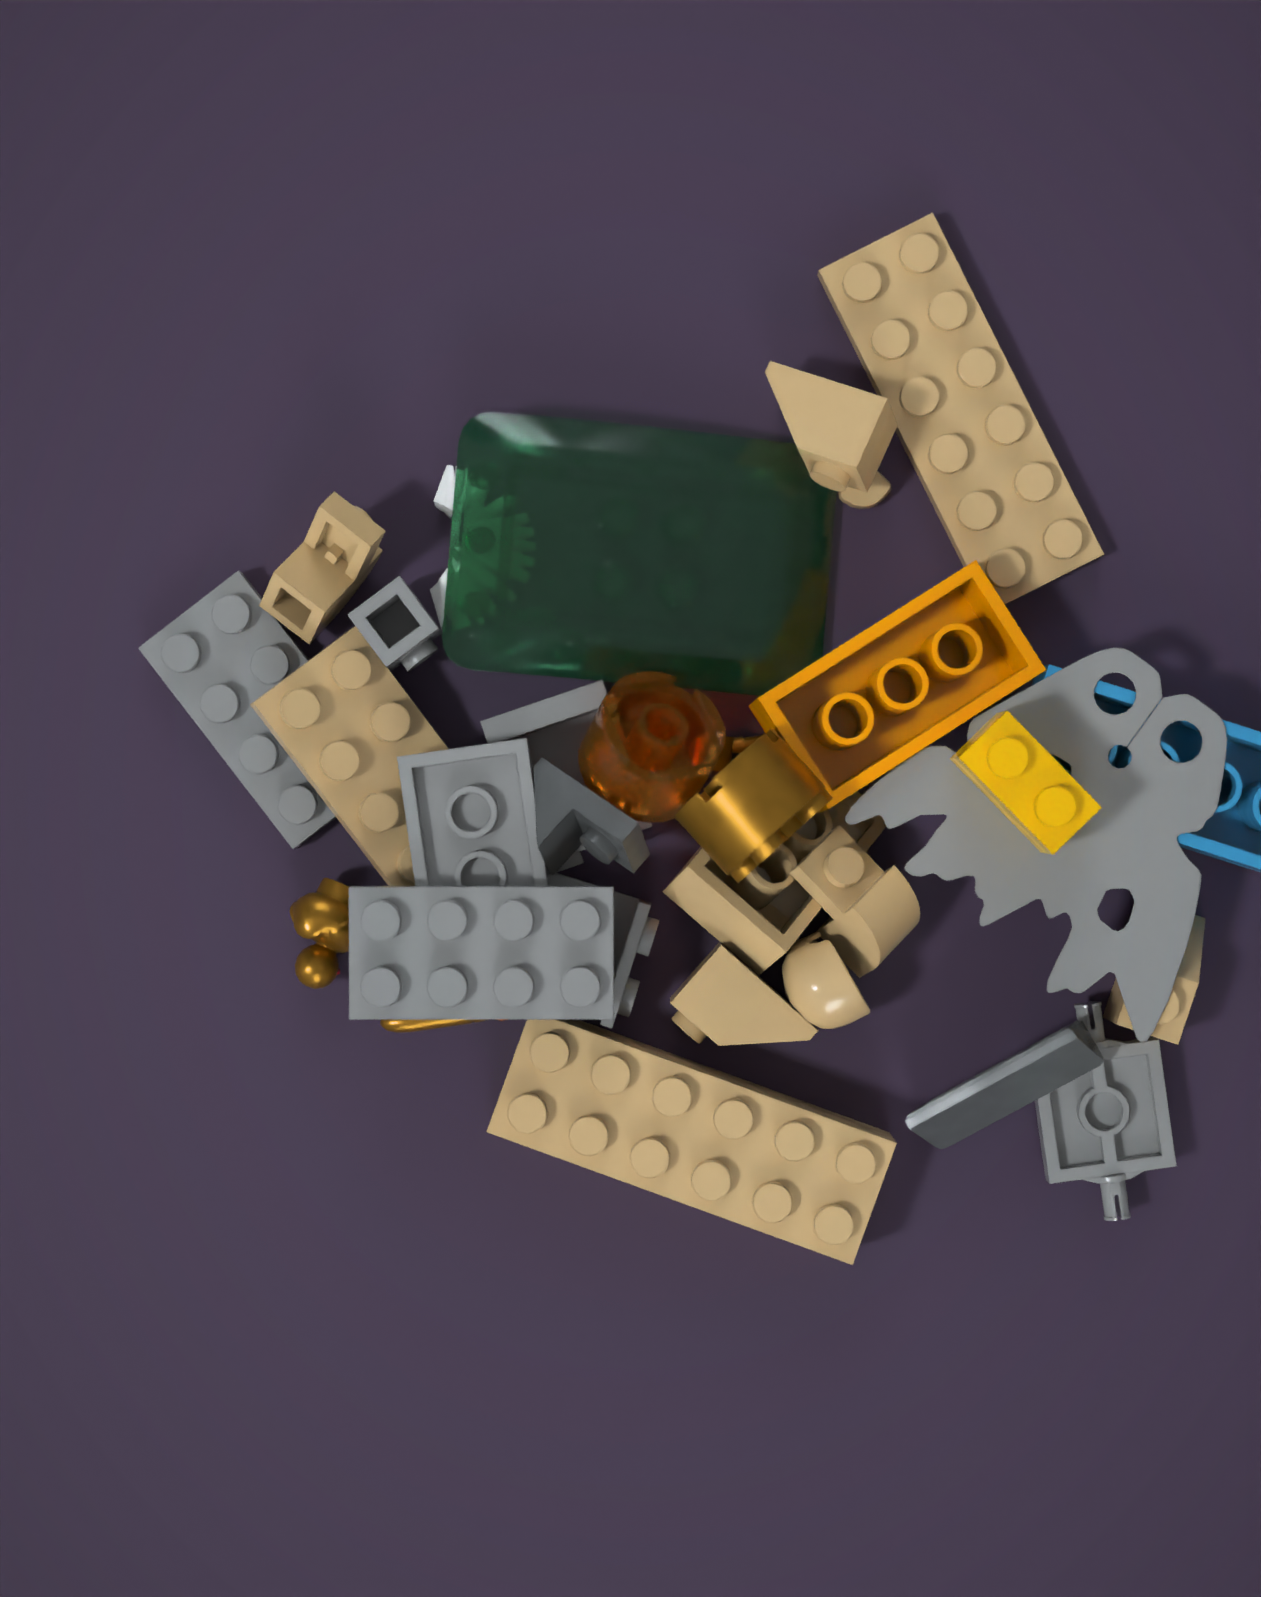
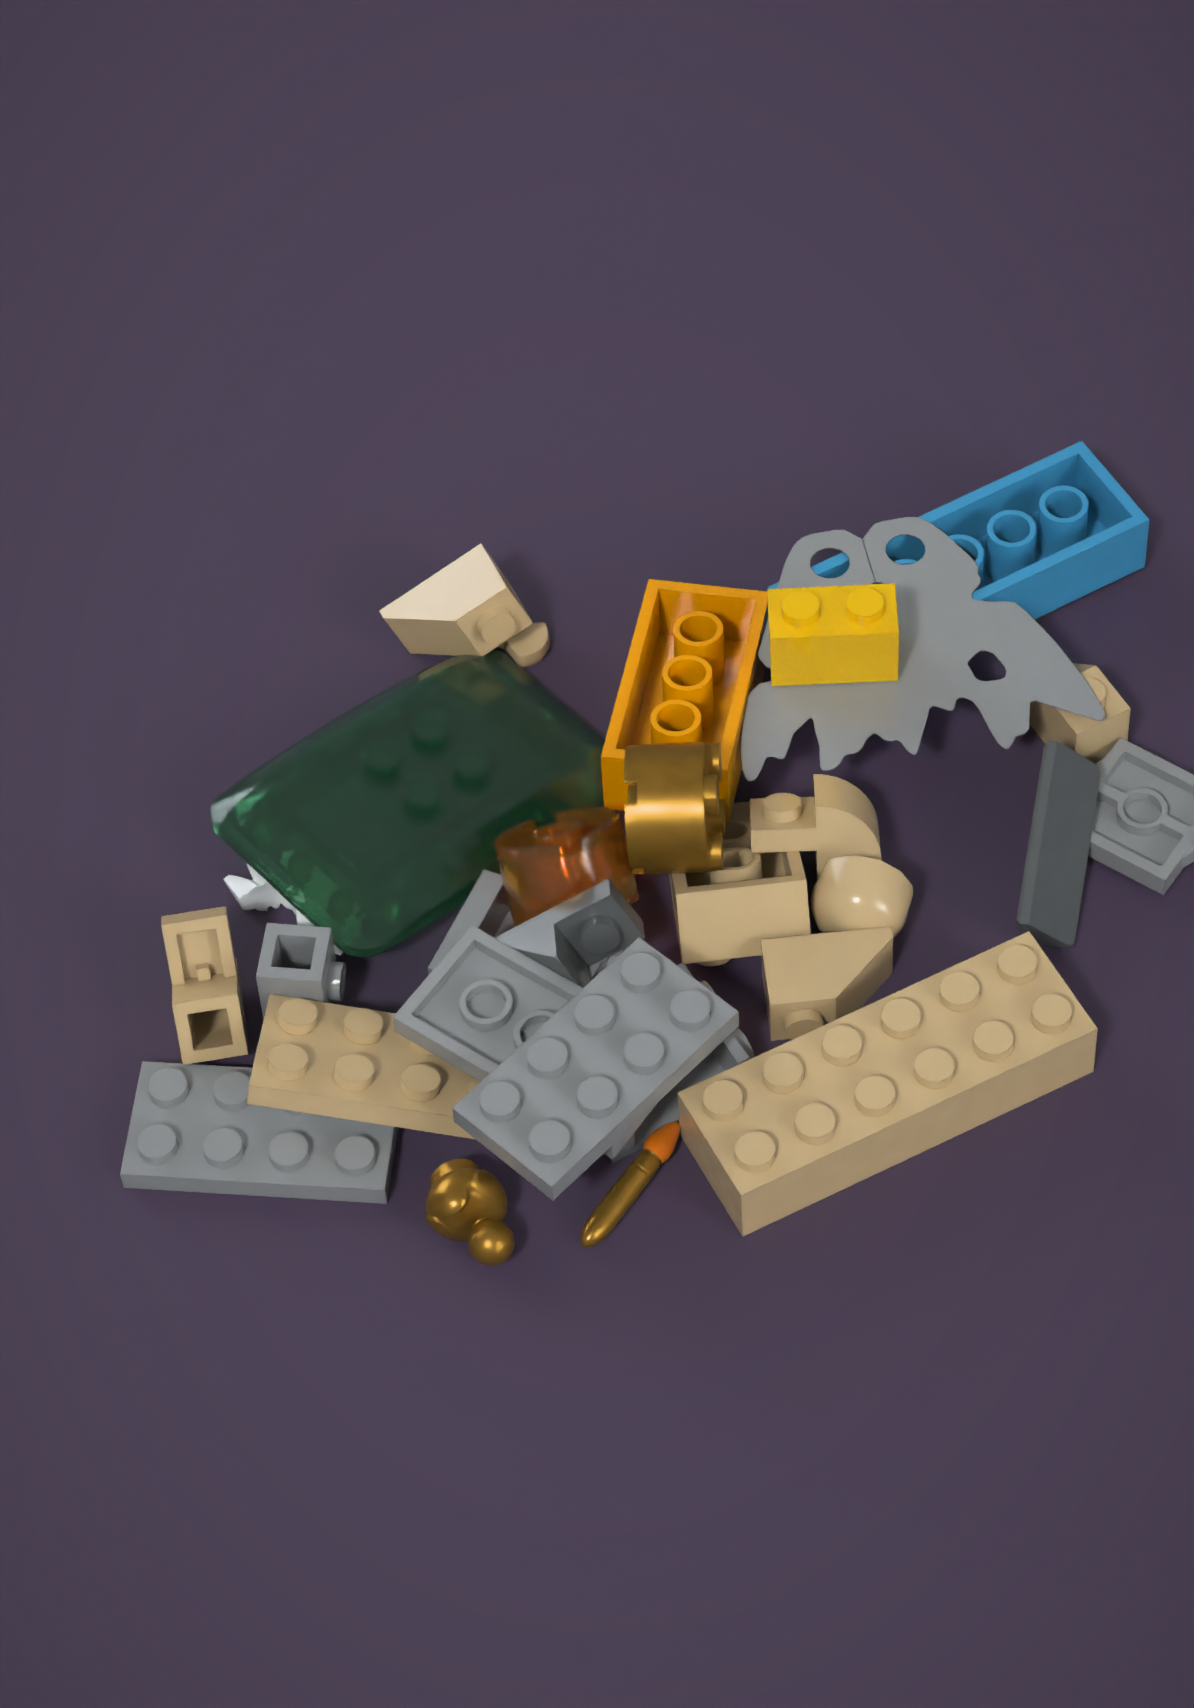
camera: 45 degrees left, 35 degrees down
(959, 409) = (549, 550): tan plate -> none

